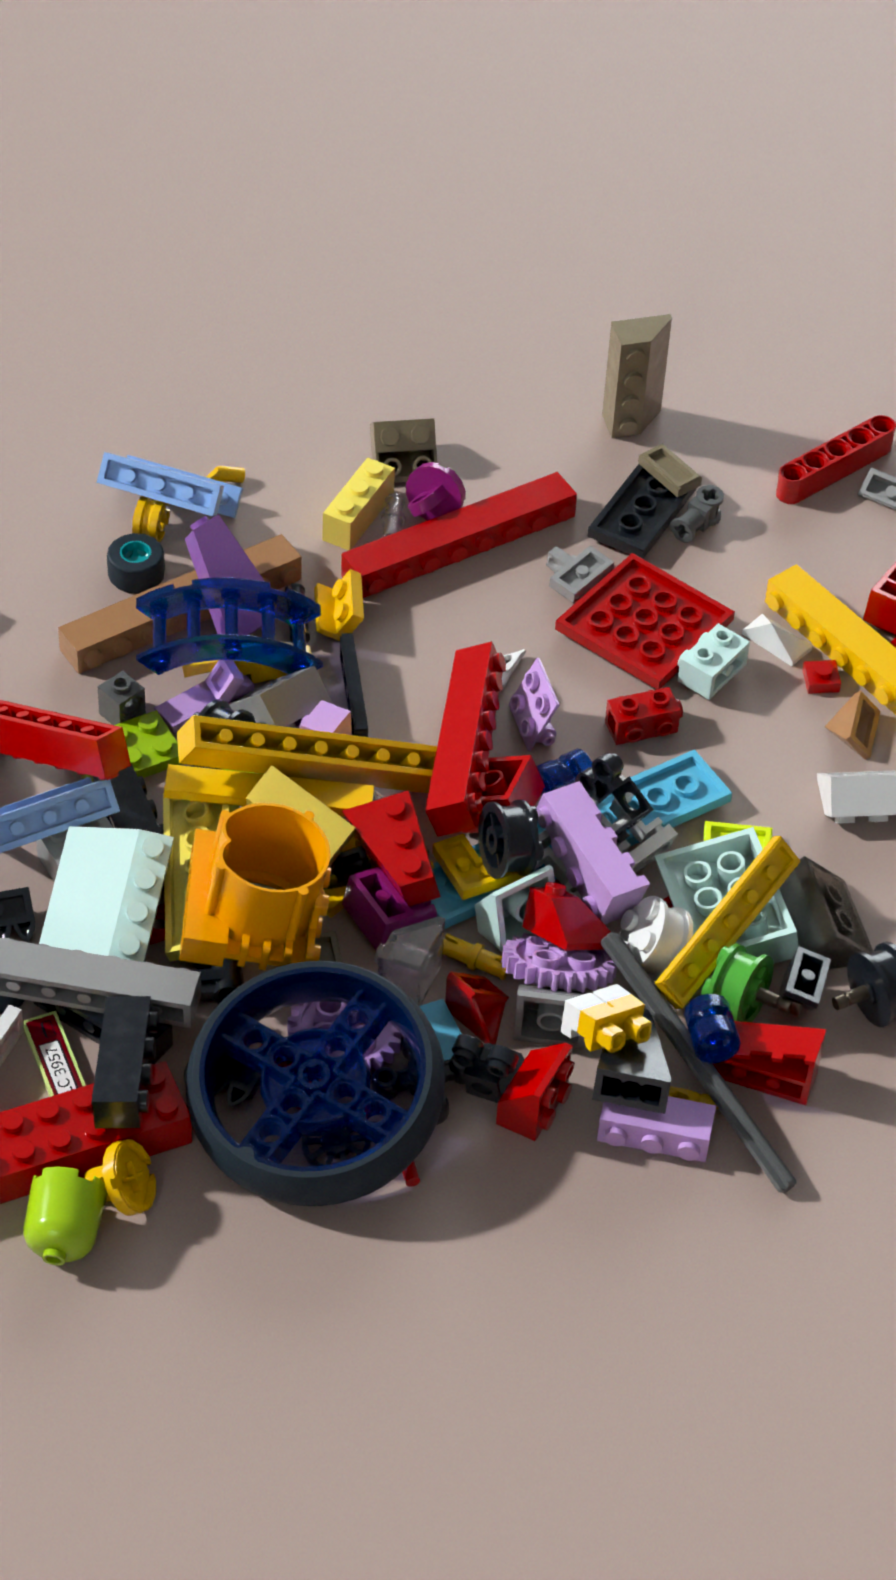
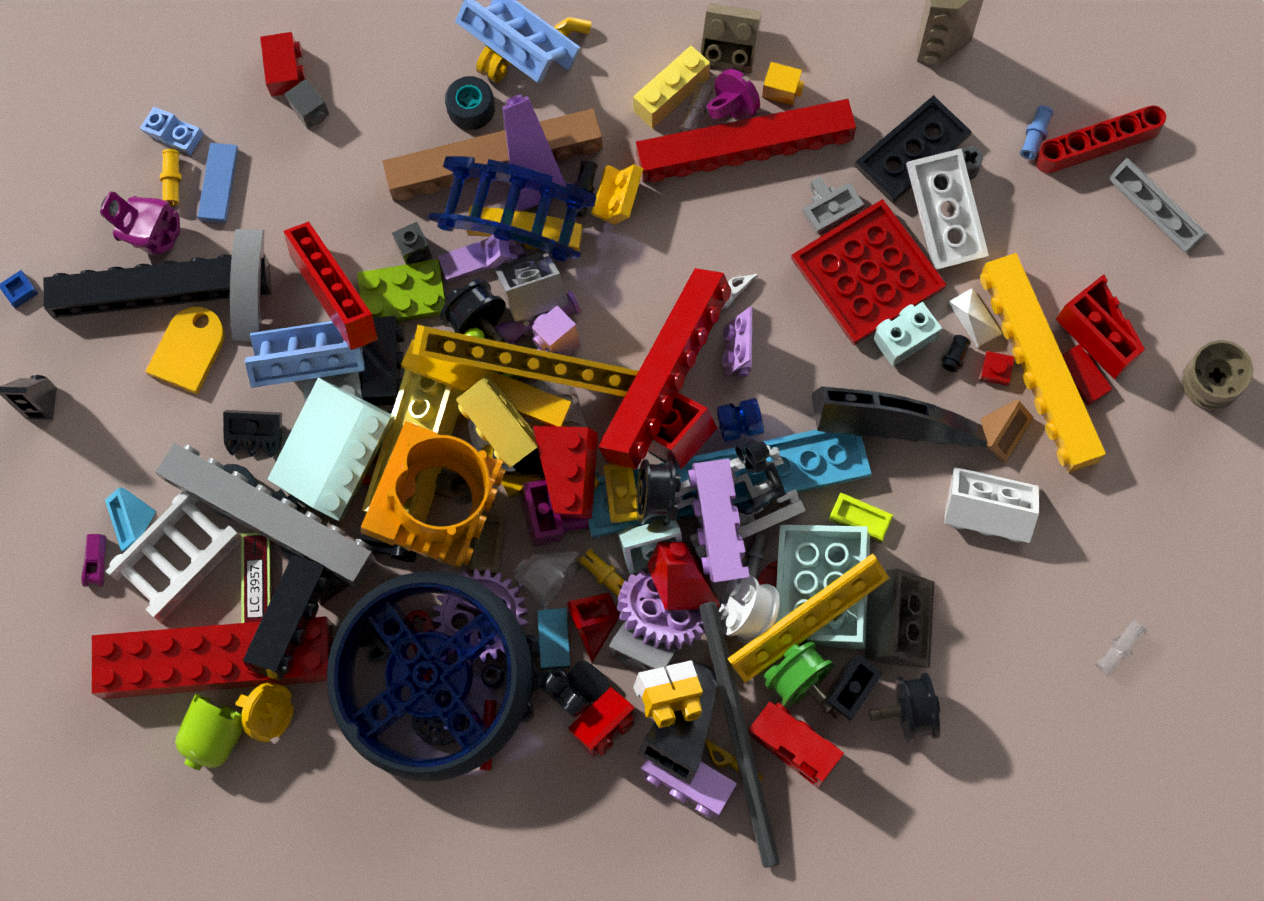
camera: 25 degrees right, 25 degrees up
(353, 685) = (600, 284): black tile -> none
(480, 477) = (783, 84): none -> yellow brick
(643, 715) = (828, 371): red brick -> none
(670, 470) = (947, 119): dark tan tile -> none
(710, 526) = (960, 195): none -> white plate
(712, 1028) = (755, 715): clear blue wheel -> none
(725, 730) = (891, 417): none -> black wedge
(767, 468) = (1036, 132): none -> medium blue pin
(772, 677) = (956, 353): none -> black pin

